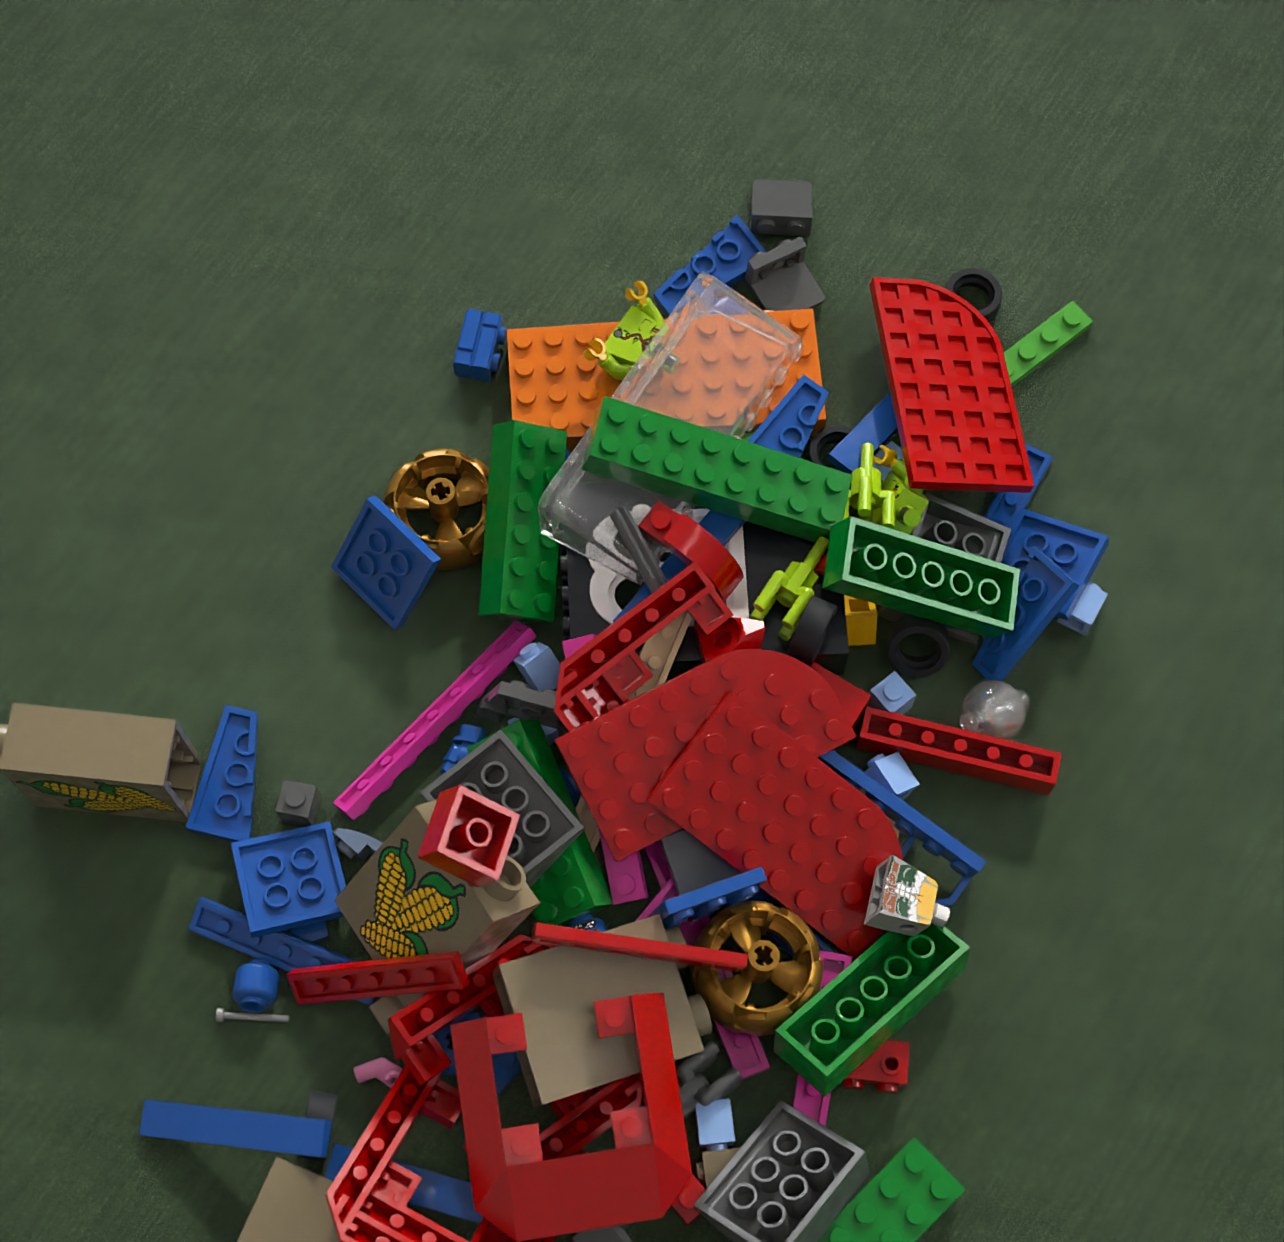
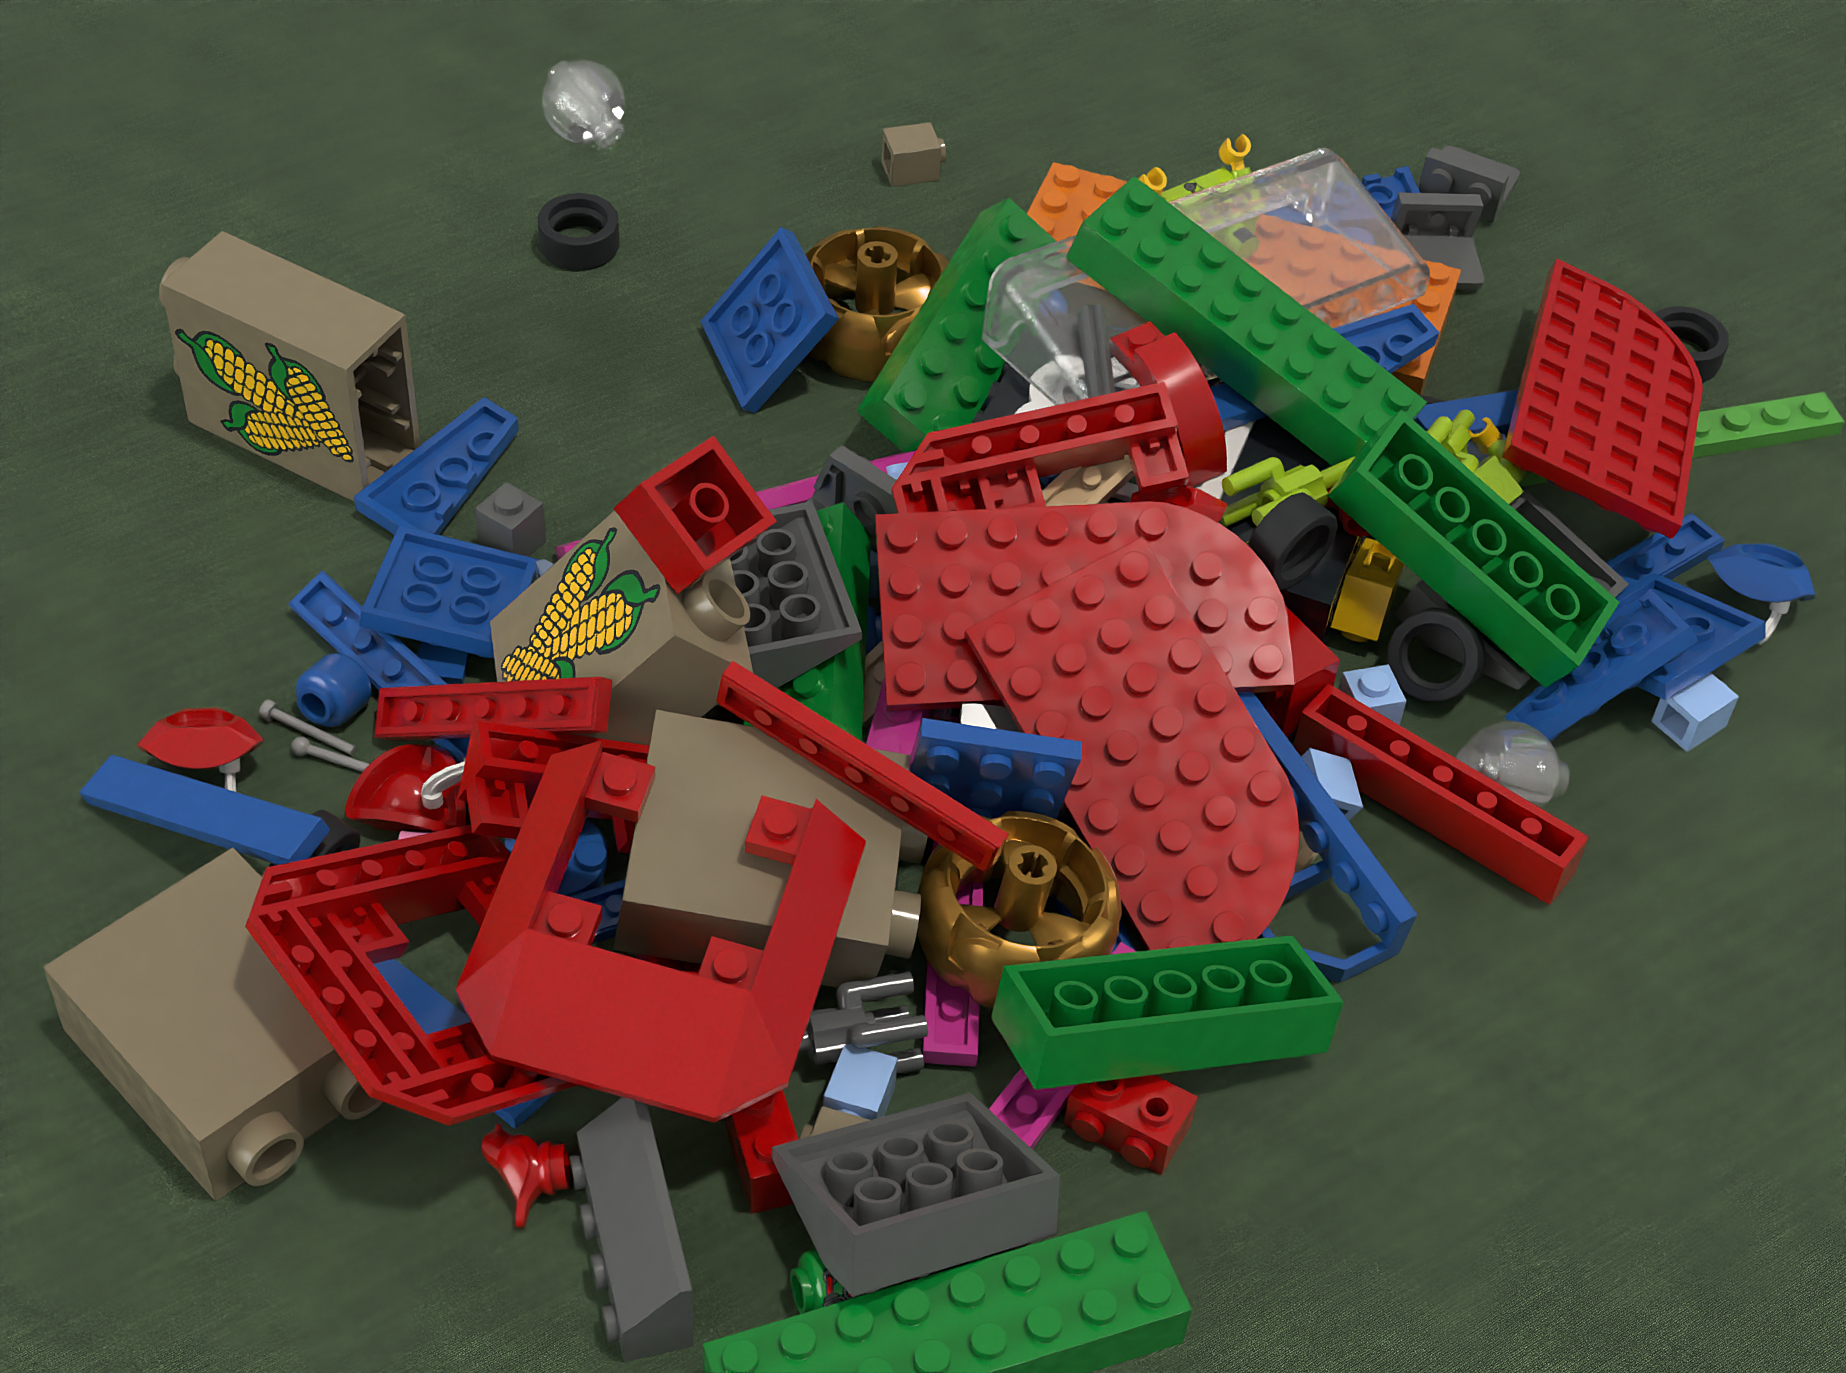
camera: 20 degrees right, 20 degrees down
(159, 413) = (584, 102): none -> clear brick
(199, 1067) = (202, 741): none -> red hat
(206, 504) = (578, 252): none -> black tyre
(312, 1027) = (301, 746): none -> light grey hinge
(346, 1038) = (409, 791): none -> red hat
(402, 352) = (912, 154): none -> dark tan brick
(479, 345) = (1010, 172): blue brick -> none
(903, 899) = (1272, 901): torso -> none
(1090, 484) = (1765, 575): none -> blue hat

